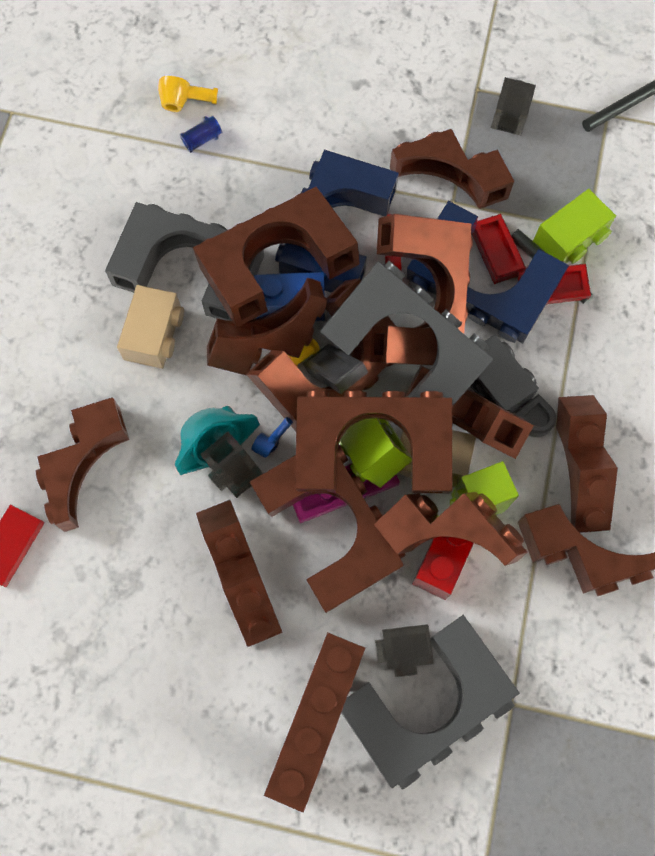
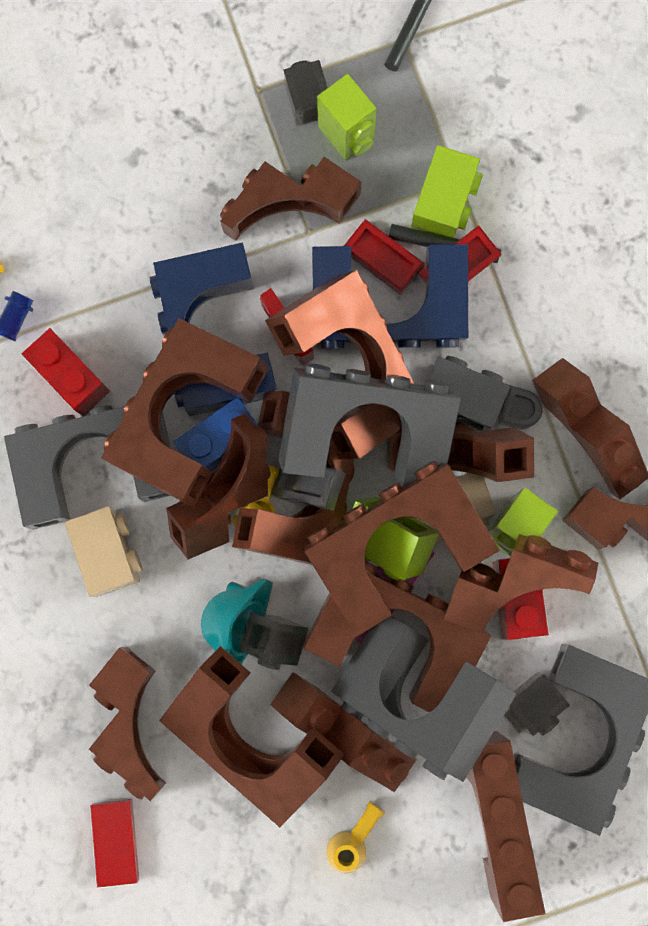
camera: 25 degrees left, 10 degrees up
(136, 492) = (270, 782): none -> copper arch
(190, 666) = (353, 841): none -> yellow bar
(211, 187) = (65, 372): none -> red brick
(265, 445) = (289, 595): blue hand -> none
(319, 608) = (447, 736): none -> dark grey arch
(531, 132) = (347, 117): none -> lime brick

